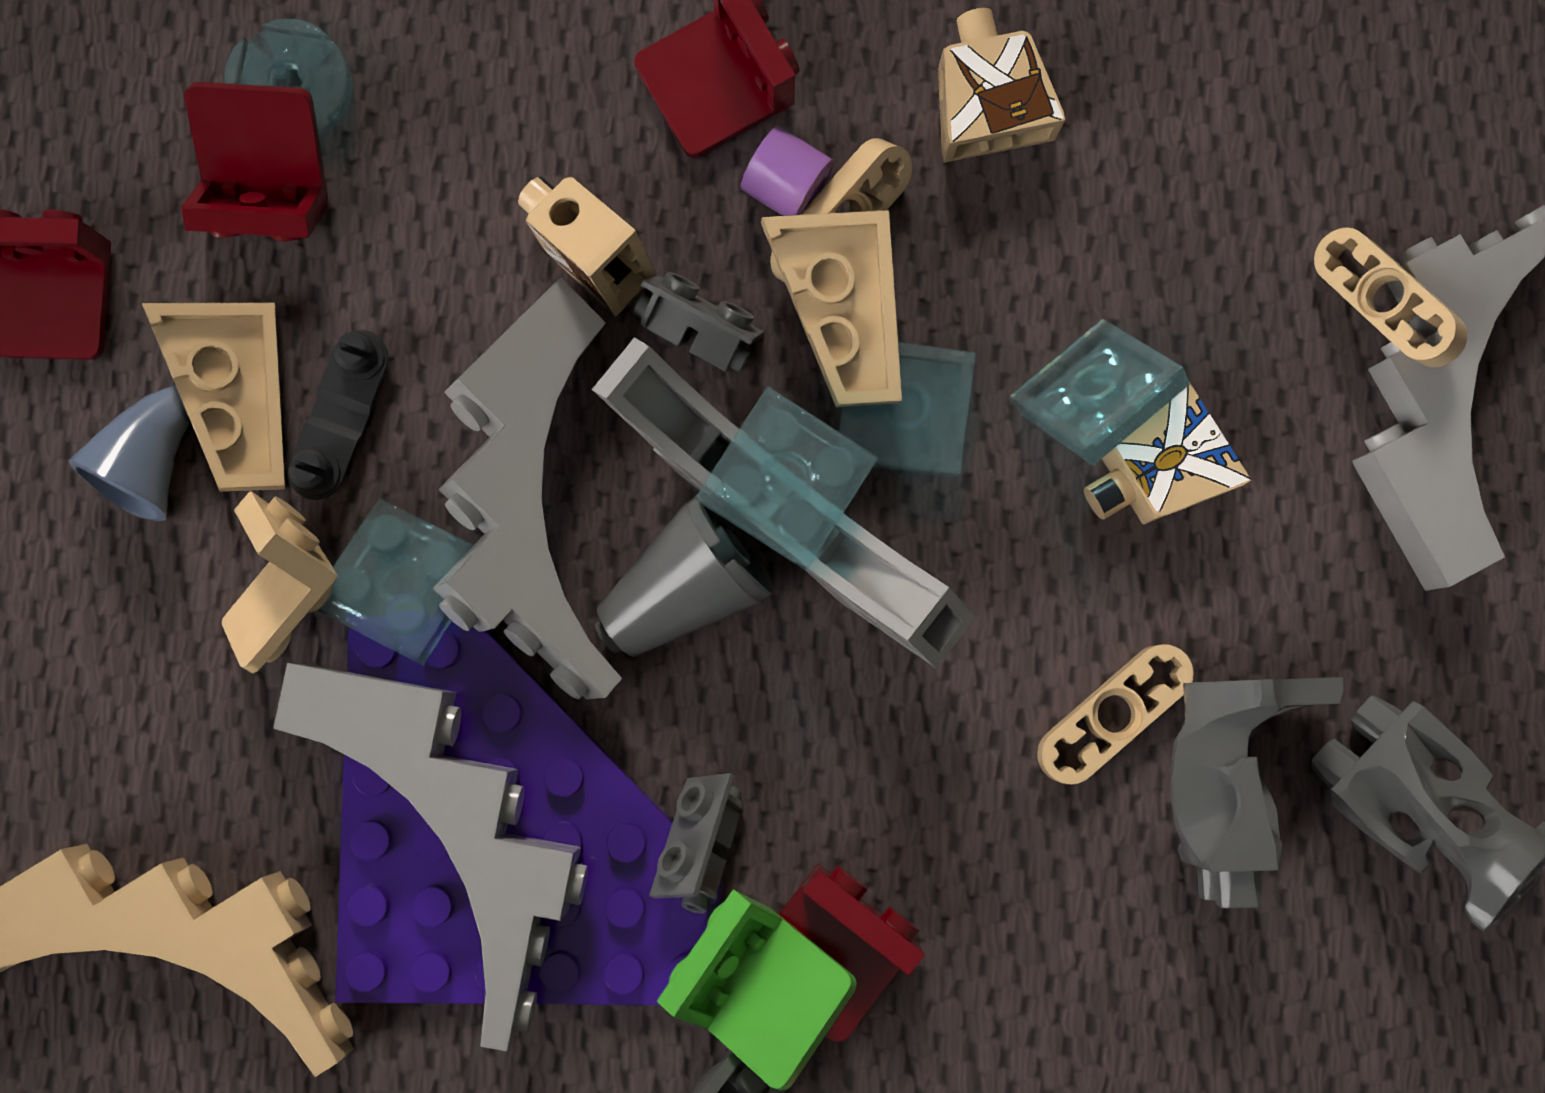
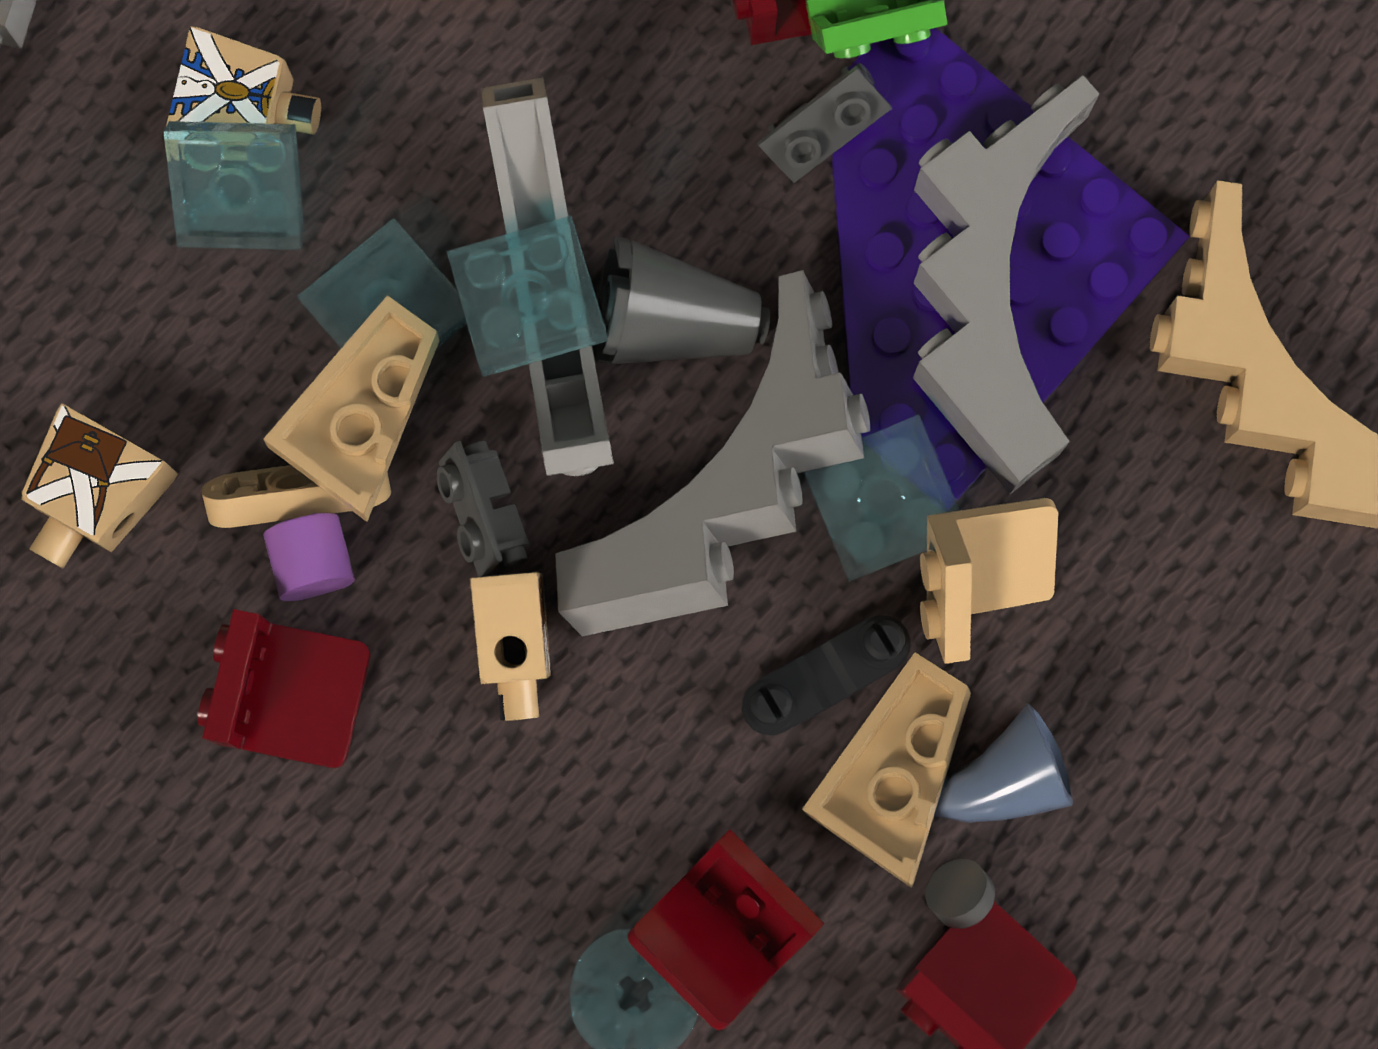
camera: 140 degrees left, 5 degrees down
(111, 340) = (960, 893): none -> dark grey tile

